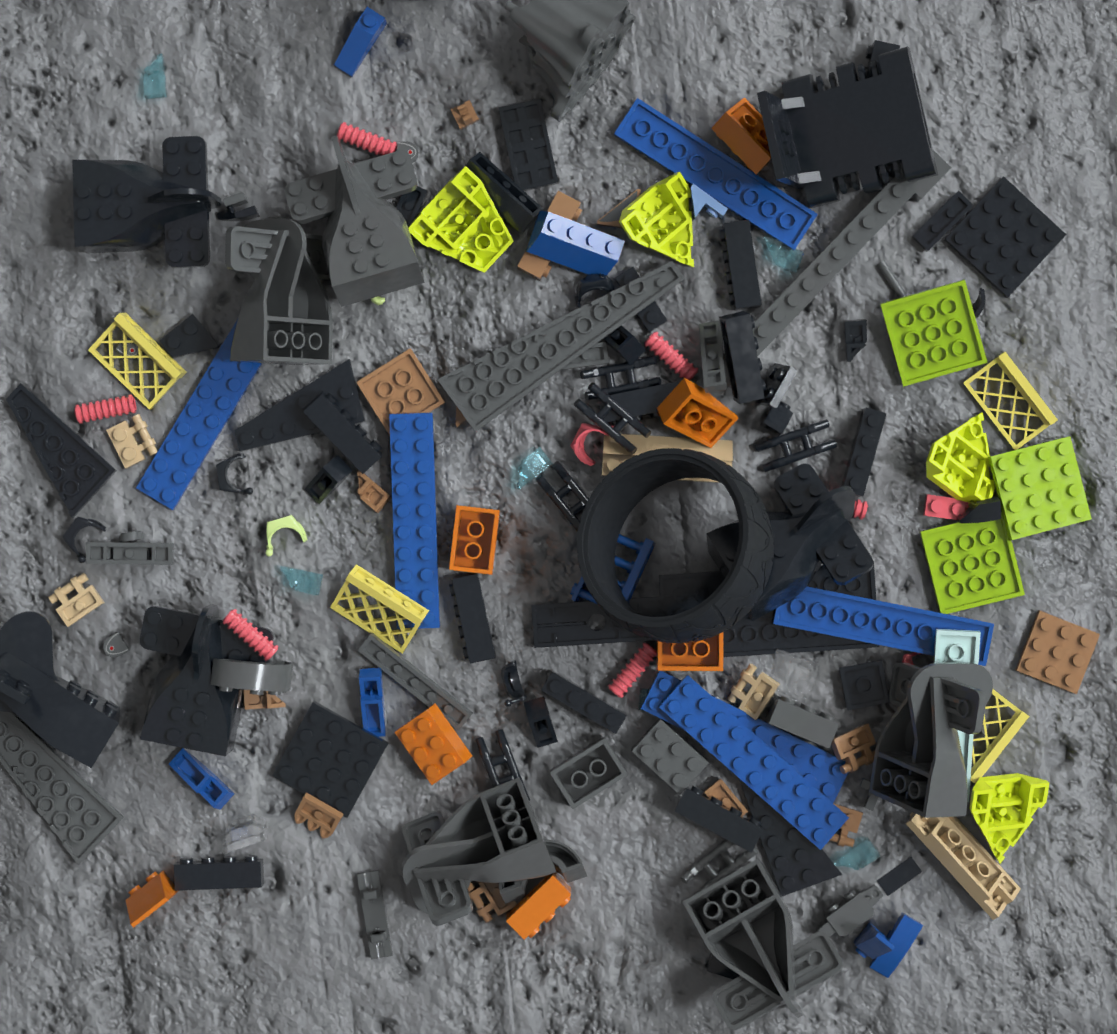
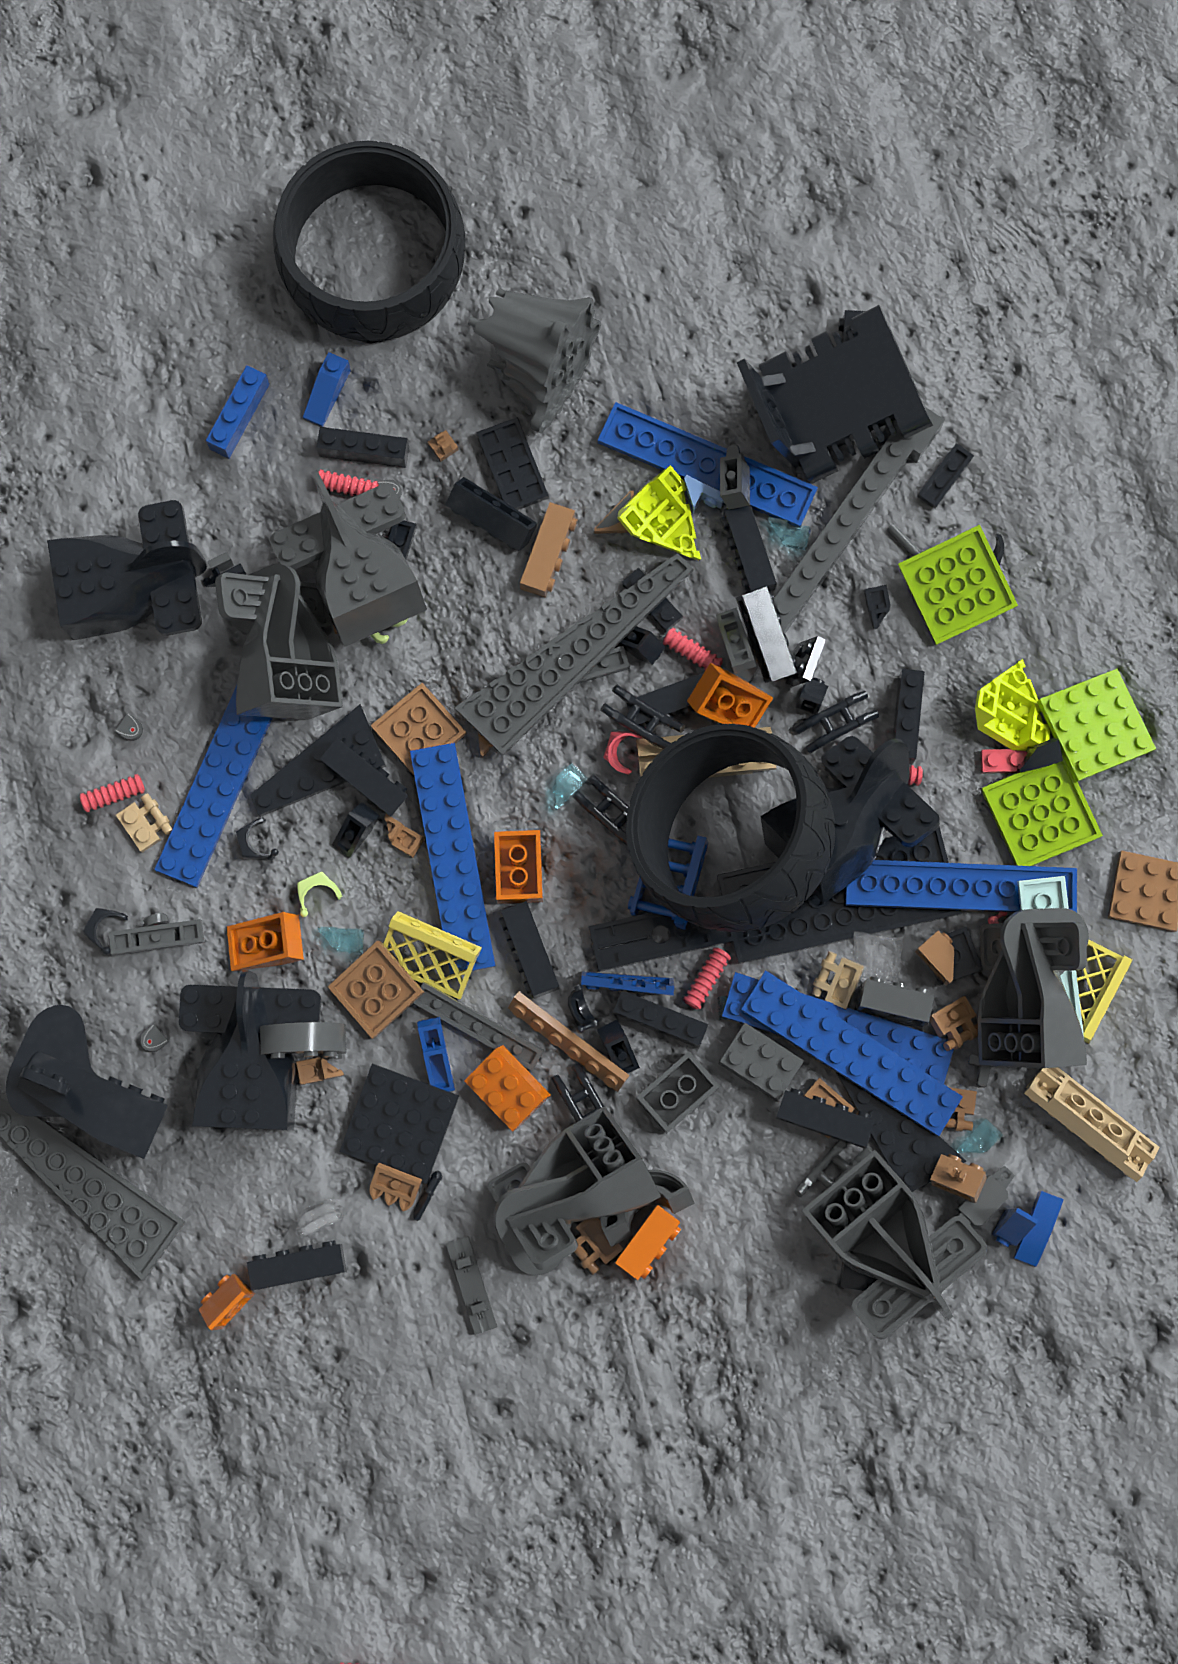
camera: 10 degrees left, 10 degrees down
(66, 457) = (78, 850): black wing -> none
(79, 605) = (110, 1001): tan plate -> none
(149, 347) = (151, 724): light yellow fence -> none
(155, 79) = (122, 458): clear light blue slope -> none
(188, 338) = (189, 709): black wing -> none
(201, 779) = (264, 1166): blue slope -> none
(229, 572) = (265, 942): none -> orange slope
(250, 634) = (296, 995): coral piece -> none
(271, 51) = (237, 412): none -> blue brick
(325, 633) = (375, 989): none -> medium nougat plate
(345, 828) = (427, 1194): none -> black piece
(387, 105) = (362, 447): none -> black brick
(463, 223) = (459, 548): neon yellow wedge -> none
(491, 704) = (568, 1041): none -> medium nougat plate
(569, 666) = (634, 983): none -> blue wing
(574, 244) = (575, 552): blue slope -> none
(593, 282) = (598, 588): black helmet -> none
(632, 383) = (630, 677): black piece -> none
(691, 656) = (765, 946): orange brick -> none
(738, 196) = (734, 478): none -> dark grey hinge
(745, 135) = (733, 421): orange slope -> none
(831, 891) = (959, 1177): none -> medium nougat brick
(850, 684) = (939, 956): none -> medium nougat slope
(899, 876) = (1028, 1154): black sticker -> none
(1005, 237) = (1011, 483): black plate -> none
(1005, 807) = (1127, 1061): neon yellow wedge -> none
(1024, 387) = (1062, 628): light yellow fence -> none

